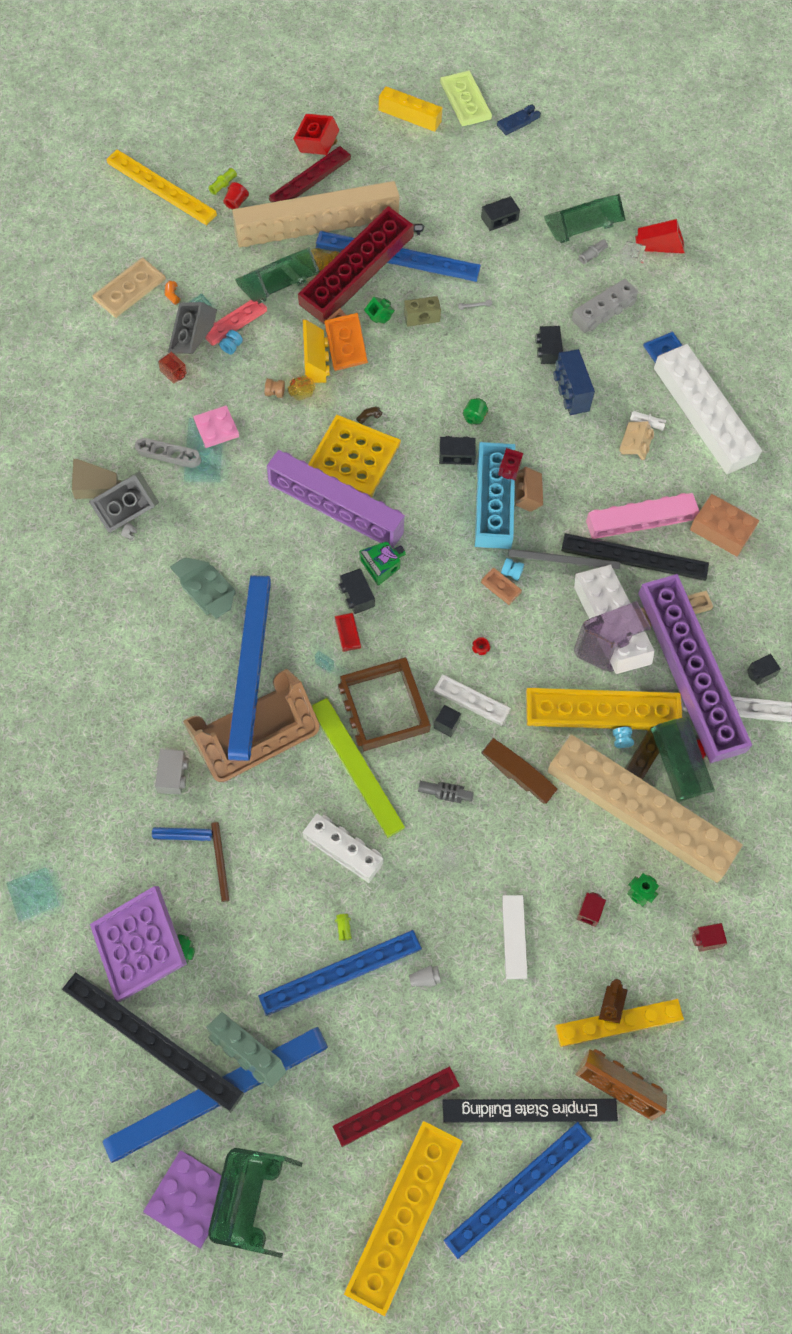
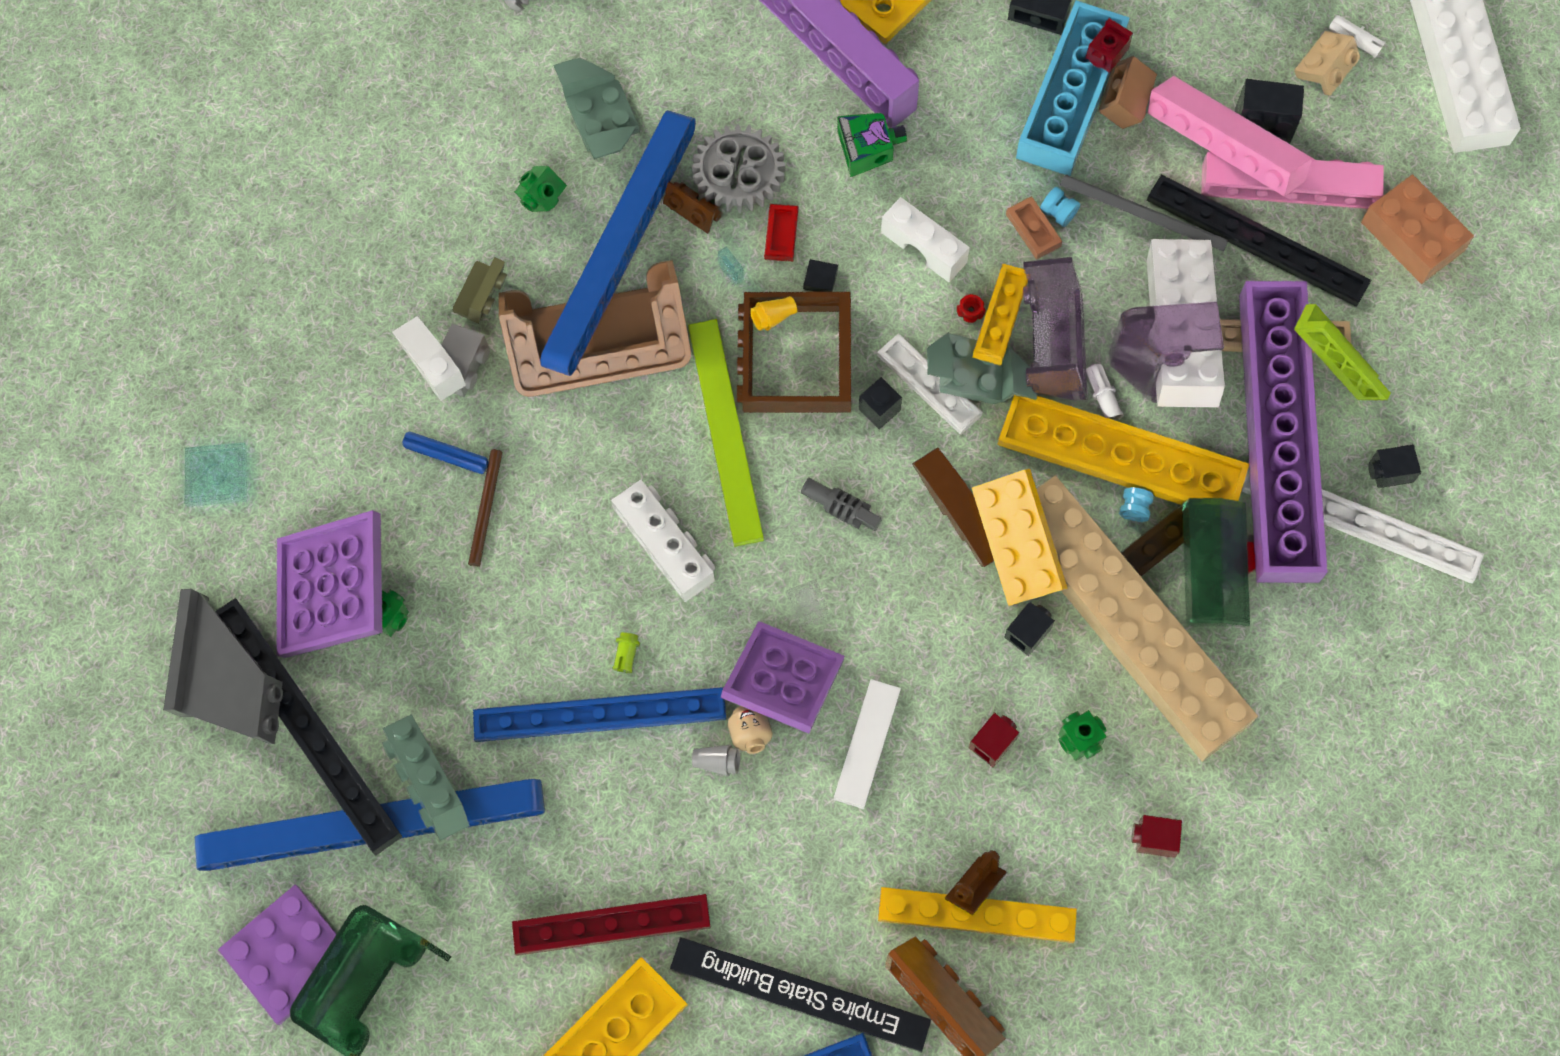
camera: 25 degrees right, 5 degrees up
(82, 1028) = (216, 675): none -> dark grey piece
(154, 775) = (430, 358): none -> white slope
(168, 722) = (478, 289): none -> olive bracket
(186, 647) = (540, 189): none -> green brick
(281, 630) = (685, 203): none -> reddish brown hinge
(289, 600) = (765, 173): none -> light grey gear
(356, 591) = (815, 176): black brick -> none
(362, 684) = (770, 313): none -> yellow cone
(381, 652) = (820, 276): none -> black tile
(439, 951) = (749, 730): none -> tan head
(449, 911) = (783, 677): none -> medium lavender plate
(450, 614) = (942, 250): none -> white arch
(501, 644) = (1001, 315): none -> yellow tile
(502, 682) = (973, 378): none -> sand green piece
(539, 645) = (1057, 329): none -> windscreen
(563, 779) = (1019, 537): none -> yellow plate
(578, 674) = (1104, 392): none -> white axle
(587, 833) = (1029, 628): none -> black brick
(598, 499) = (1229, 135): none -> bright pink brick
(615, 479) = (1272, 106): none -> black brick
(711, 612) = (1339, 355): none -> lime fence

